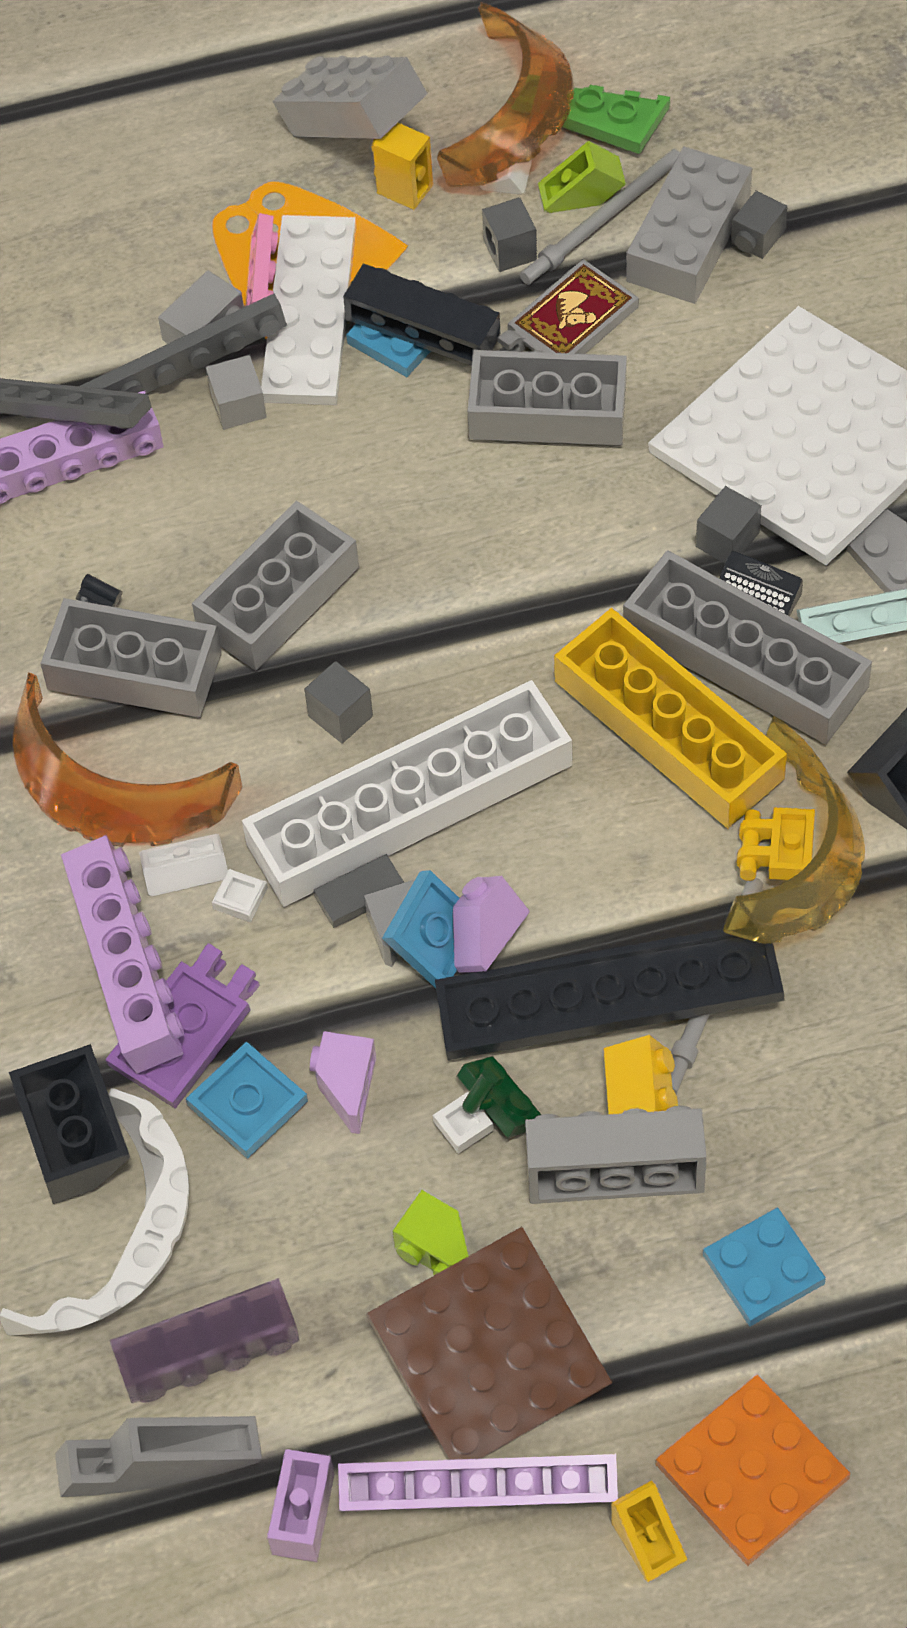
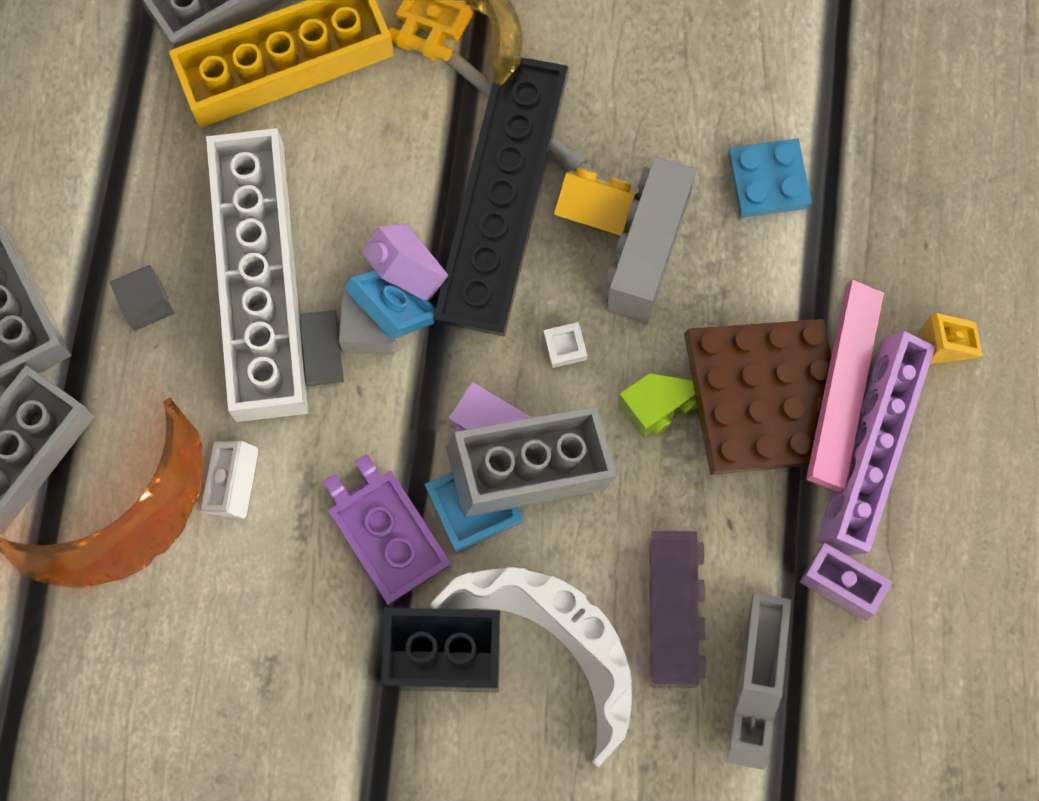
camera: 70 degrees left, 15 degrees up
(140, 1041) = (205, 557): lavender brick -> none
(239, 895) = (280, 444): white tile -> none
(305, 1125) = (530, 461): none -> light grey brick
(497, 1094) = (555, 310): dark green plate -> none
(536, 1427) = (845, 387): none -> bright pink tile
(752, 1469) = (924, 249): orange plate -> none

